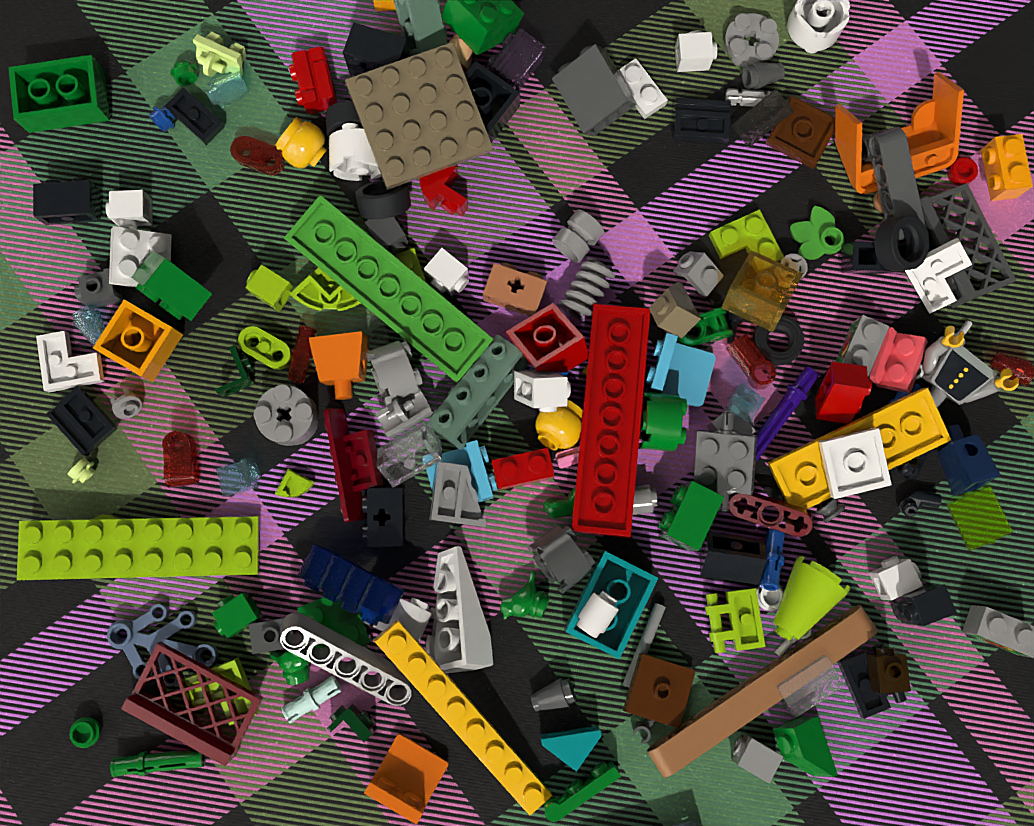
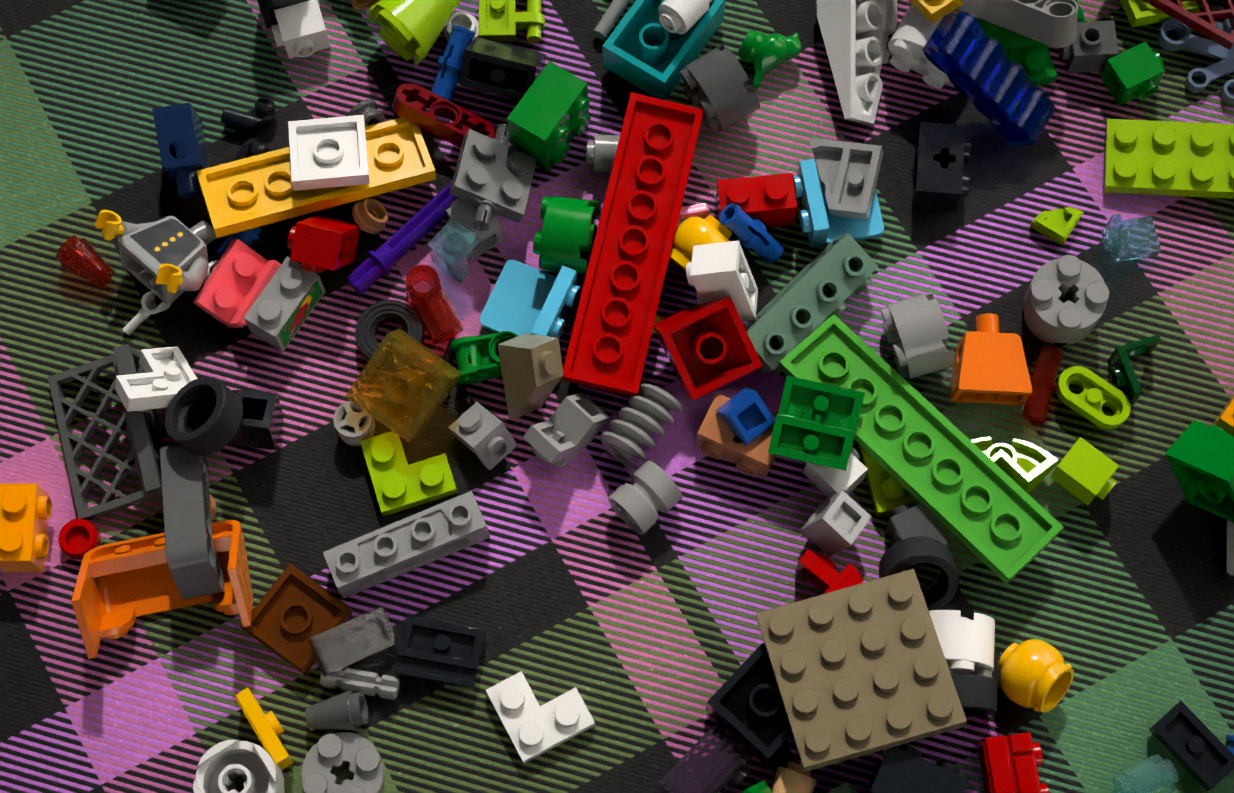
camera: 170 degrees left, 10 degrees down
(180, 464) = (1207, 265): clear red piece -> none
(259, 156) = (1099, 672): clear red plate -> none
(353, 462) = (978, 237): dark red bracket -> none
(404, 413) = (906, 282): light grey hips -> none
(409, 454) = (904, 229): clear brick -> none
(442, 230) = (836, 523): none -> light grey brick
(462, 292) = (816, 423): none -> green slope
(514, 295) = (746, 415): none -> blue slope
(524, 438) = (751, 233): none -> blue pin
(560, 508) = (710, 155): green arm -> none
(593, 90) = (595, 704): dark grey brick -> none
(641, 275) = (567, 430): none -> light grey brick
(695, 51) = (432, 759): white brick -> none
(738, 185) = (406, 544): none -> light grey brick
(805, 431) = (370, 215): none -> medium nougat plate
(808, 57) = (266, 728): none -> yellow plate
(813, 234) = (310, 474): bright green plate -> none
(979, 518) = (177, 84): clear neon green piece -> none

